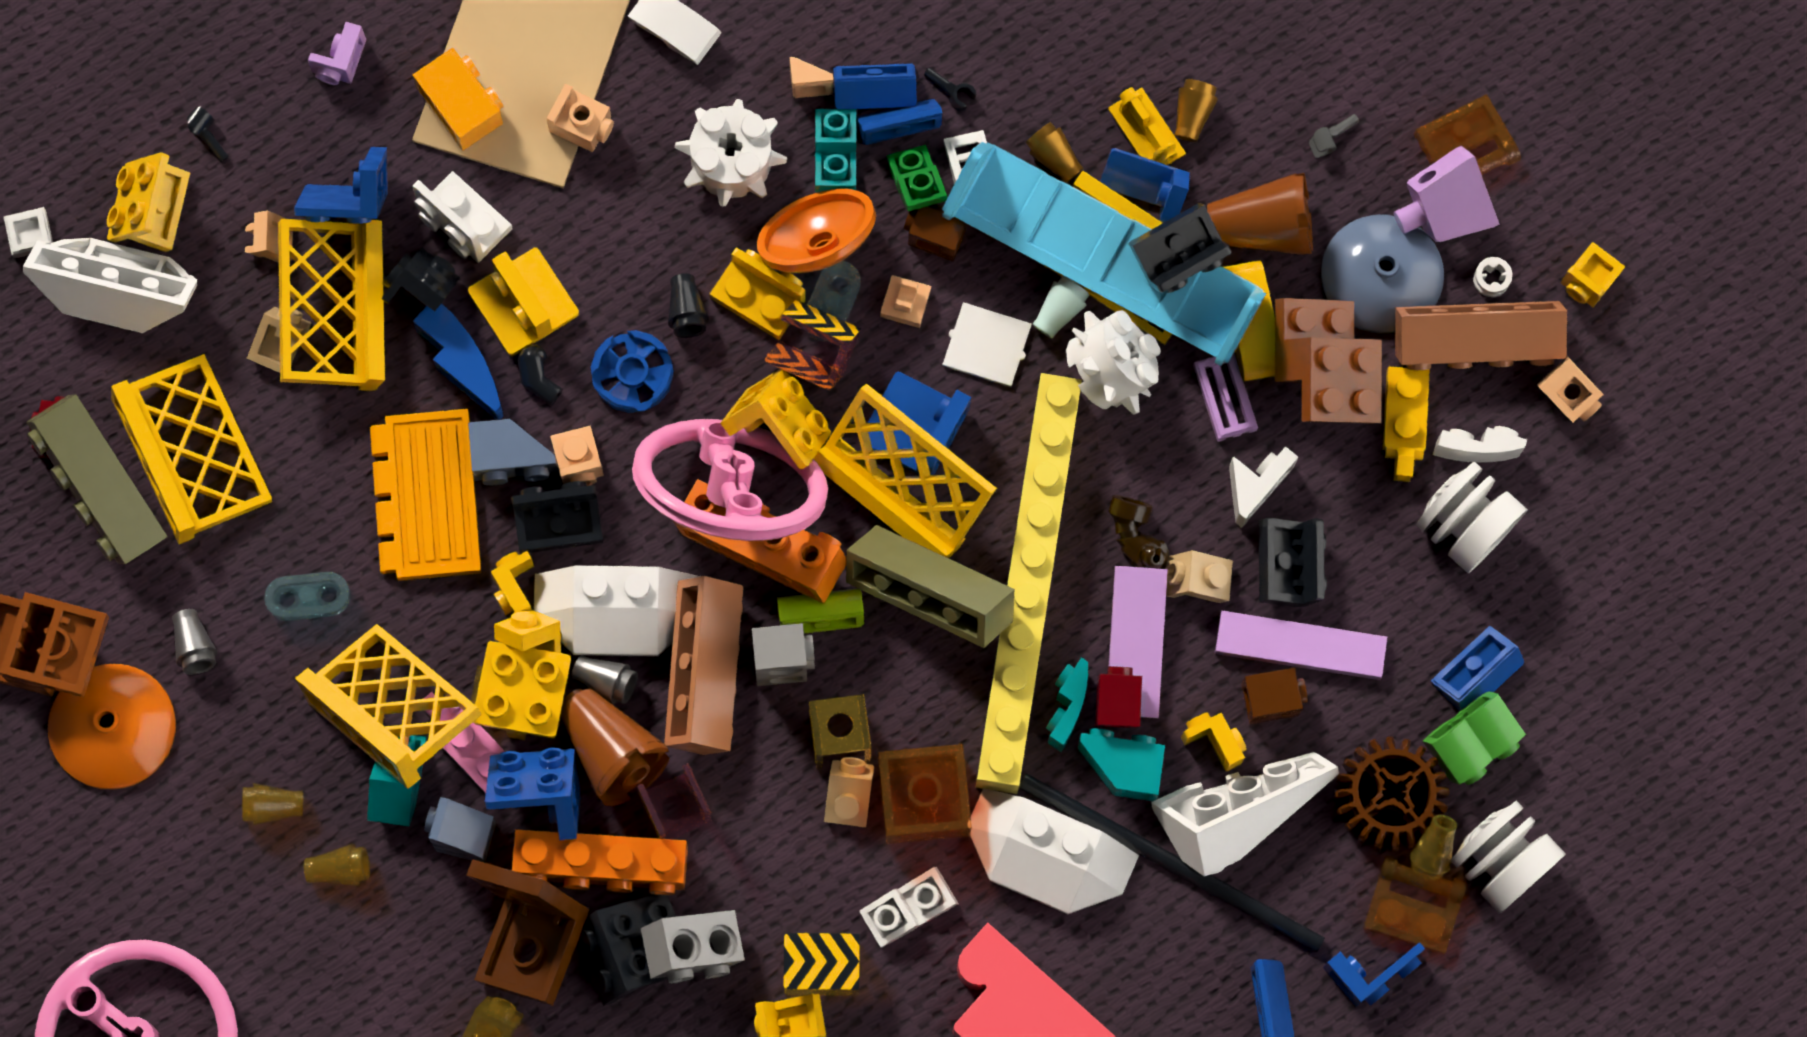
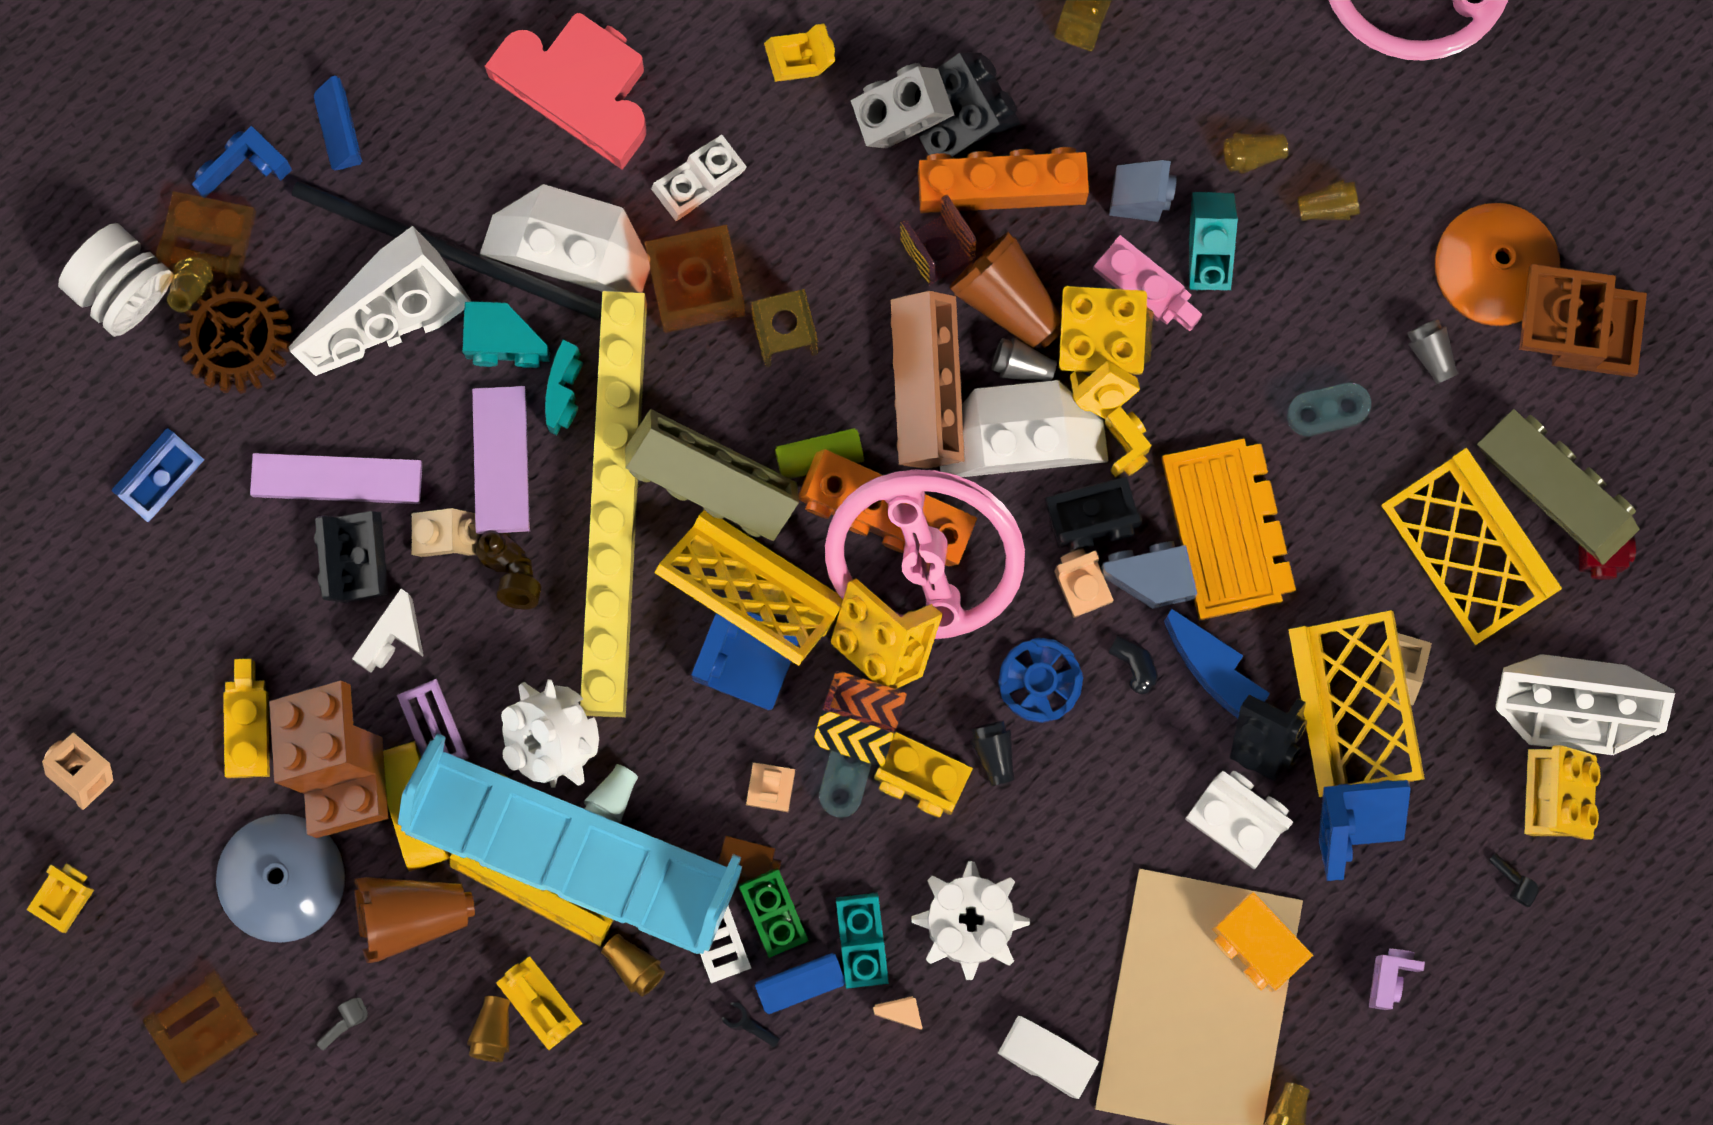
camera: 175 degrees right, 5 degrees up
(26, 229) = (1676, 752): white tile -> none
(265, 235) = (1435, 773): light nougat tile -> none
(367, 731) = (1247, 267): yellow fence -> none
(522, 300) = (1161, 738): yellow bracket -> none
(530, 914) = (1068, 118): reddish brown bracket -> none
(537, 780) = (1075, 236): blue bracket -> none
(584, 133) = (1148, 941): light nougat brick -> none
(782, 654) = (851, 395): light grey brick -> none
(816, 231) = (870, 838): orange dish -> none
(821, 964) = (776, 106): piece -> none
(849, 792) = (768, 274): tan bracket -> none
(875, 86) = (829, 1016): blue slope -> none
(987, 344) = (682, 753): white piece -> none
(1118, 698) = (512, 389): dark red brick -> none
(1147, 181) = (529, 943): blue bracket -> none
(1180, 249) = (489, 850): black bracket -> none
(1226, 742) = (402, 369): yellow bracket -> none
(1273, 695) = (358, 420): reddish brown brick -> none
(1448, 199) = (215, 955): lavender torso -> none
(1470, 516) = (163, 611): white wheel -> none
(1475, 738) = (156, 399): bright green brick -> none
(1480, 334) = (173, 816): nougat brick -> none
(1494, 446) = (157, 701): white slope -> none
(1495, 288) = (164, 873): white bush -> none

